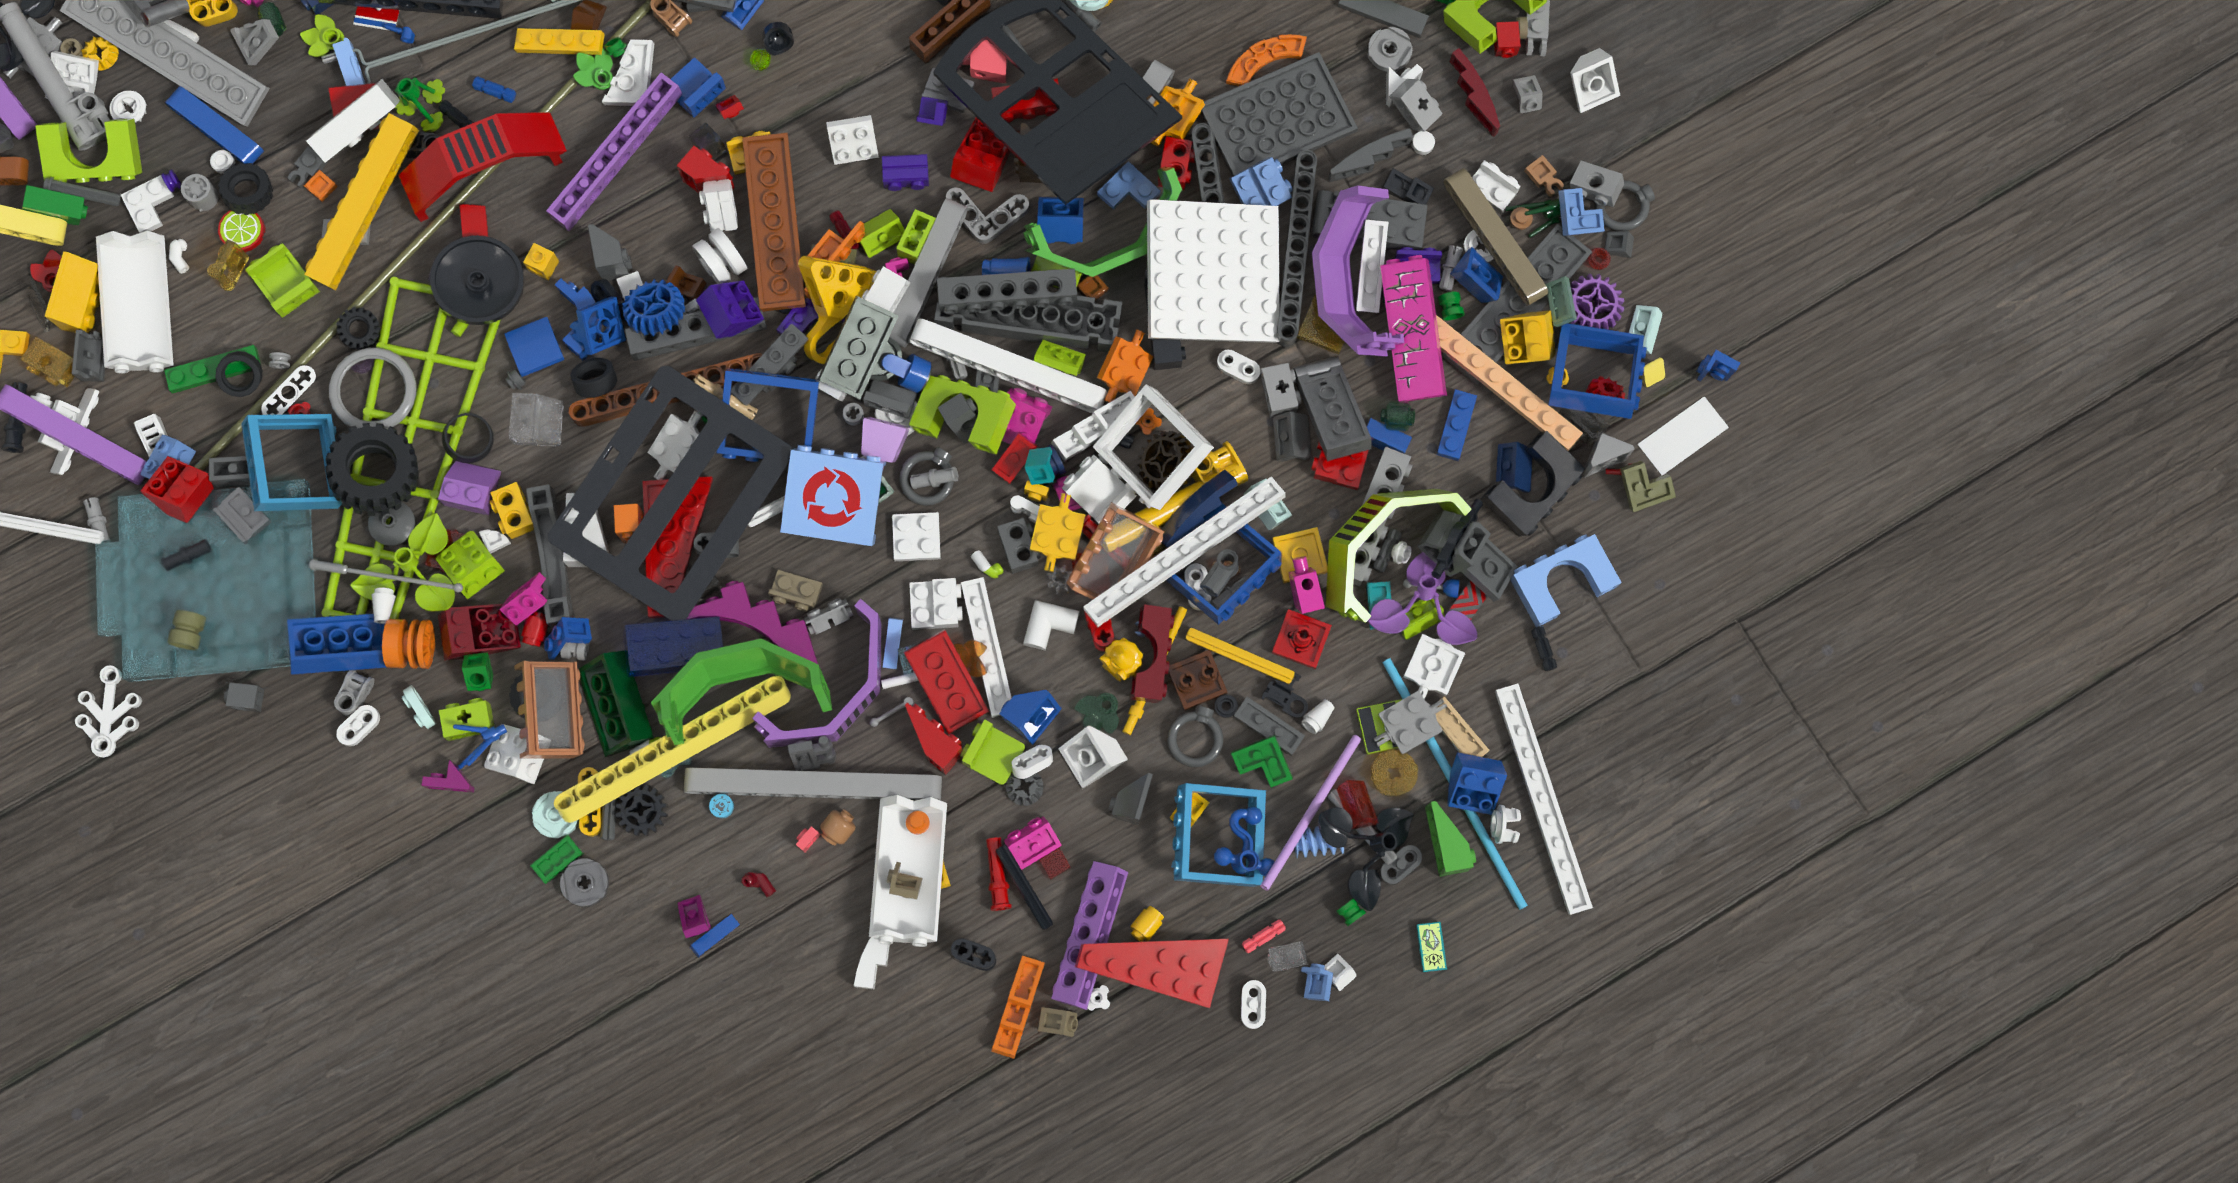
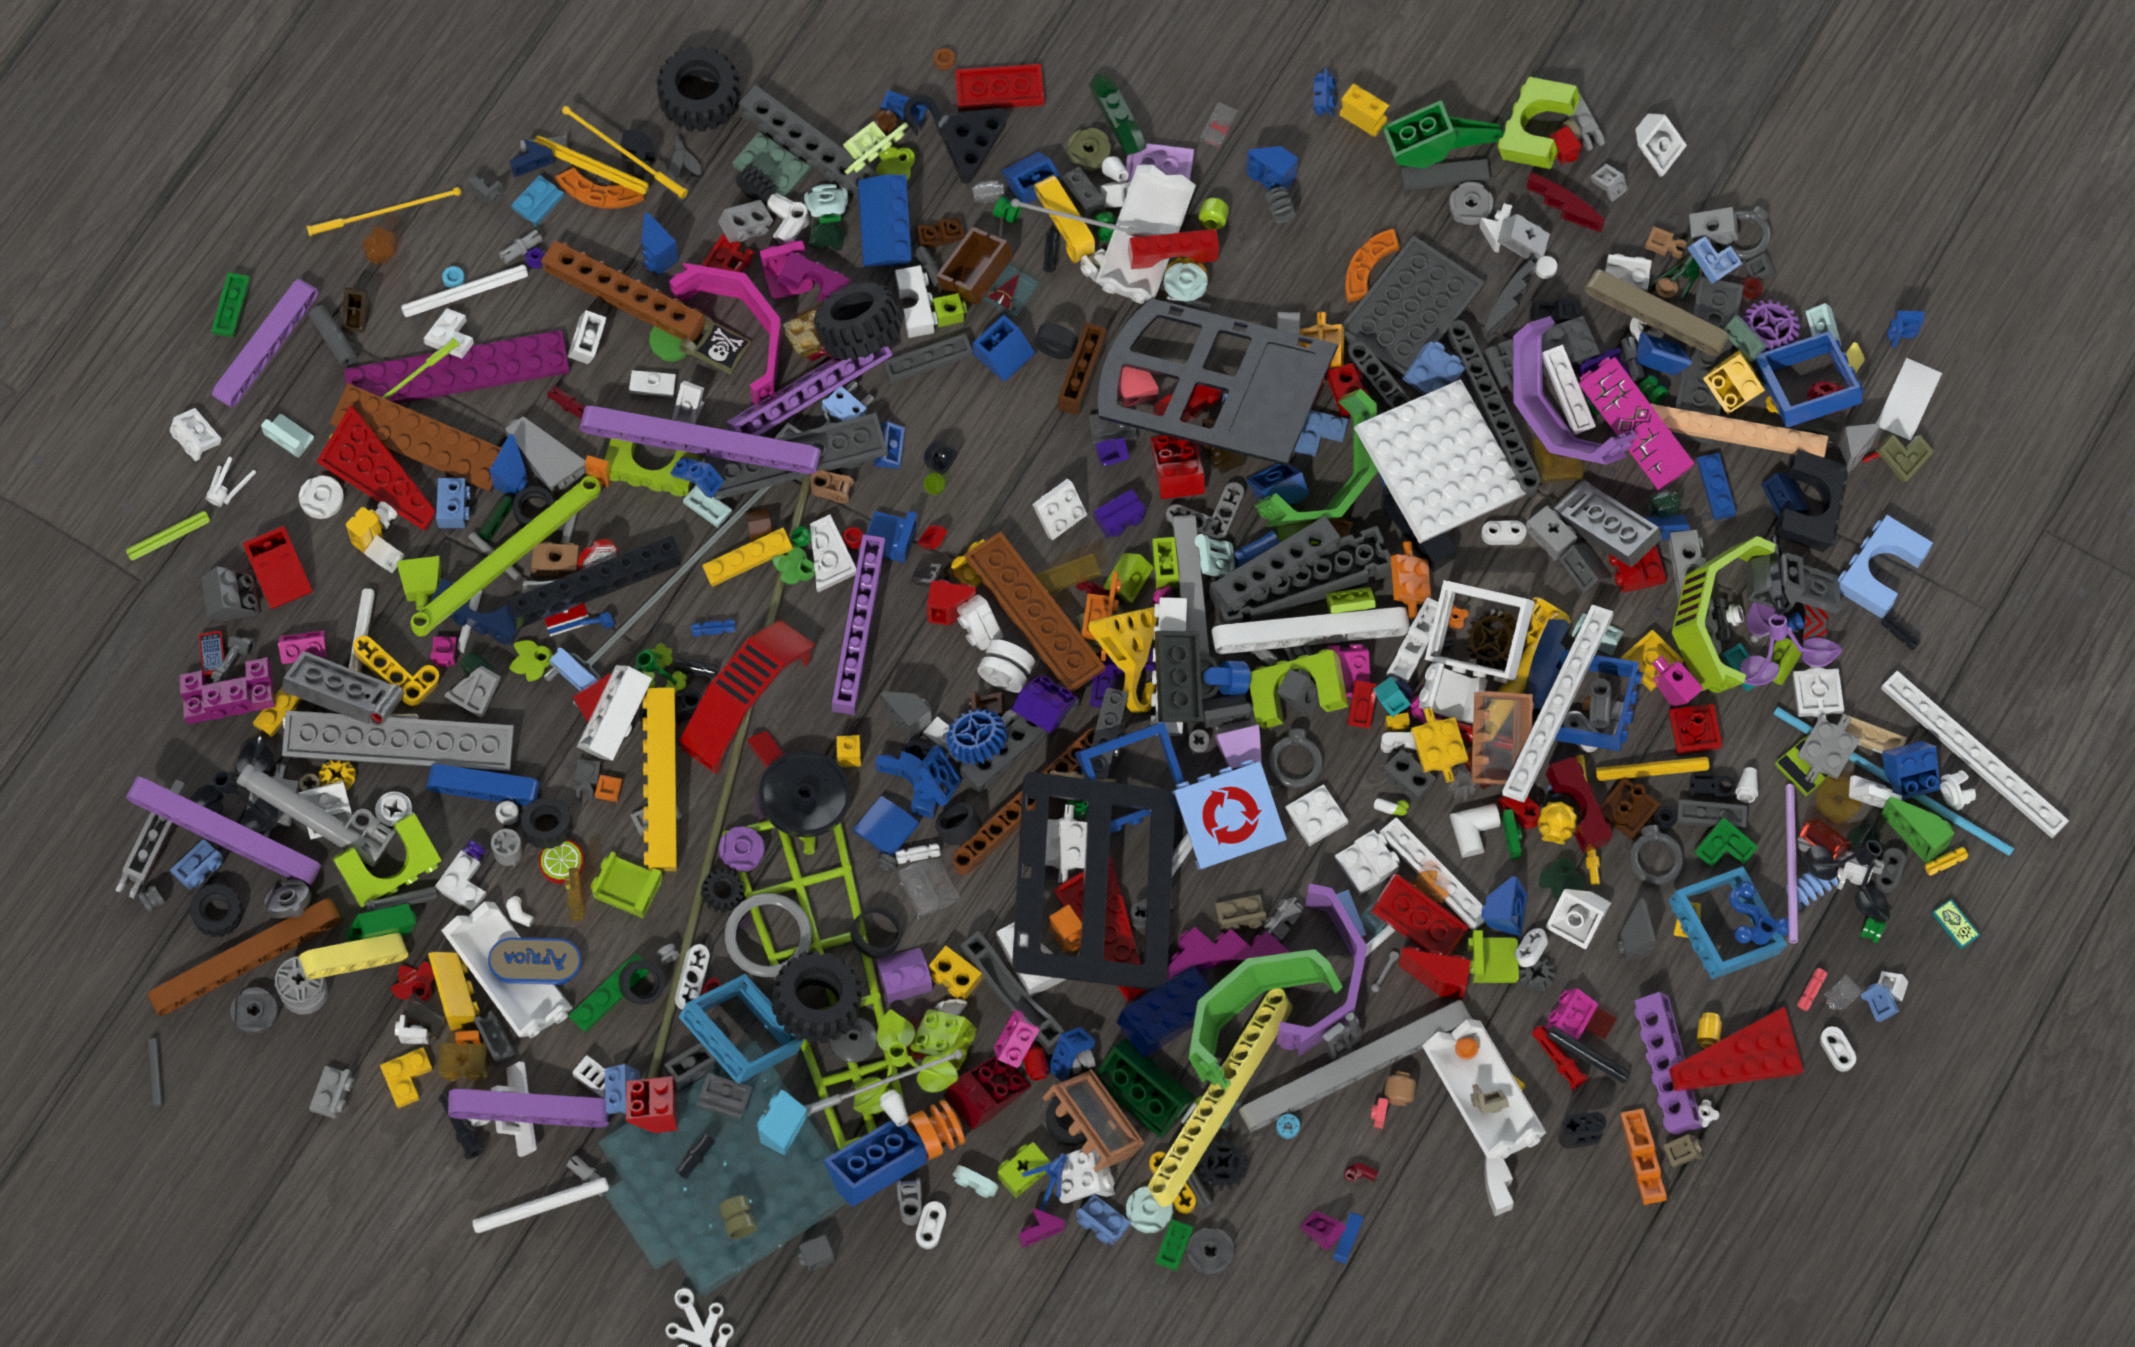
camera: 25 degrees left, 10 degrees down
(18, 309) = (413, 1035): none -> white bracket
(63, 343) = (468, 1037): none -> orange tile
(162, 306) = (534, 961): none -> dark tan tile
(272, 566) = (782, 1122): none -> medium azure slope
(397, 300) = (741, 849): none -> medium lavender tile
(476, 664) = (1004, 1117): green brick -> none
(508, 802) = (1102, 1220): none -> medium blue bracket
(548, 385) = (917, 853): none -> white axle
(662, 67) = (852, 538): none -> red plate
(826, 202) = (1069, 573): none -> clear yellow tile
(934, 477) = (1303, 756): light grey pin -> none
(959, 260) = (1212, 562): none -> light aqua plate
(1078, 648) = (1512, 834): none -> green plate
(1363, 846) = (1853, 872): none -> white bracket
(1425, 784) = (1870, 792): none -> white bracket
(1457, 883) = (1946, 861): none -> yellow axle

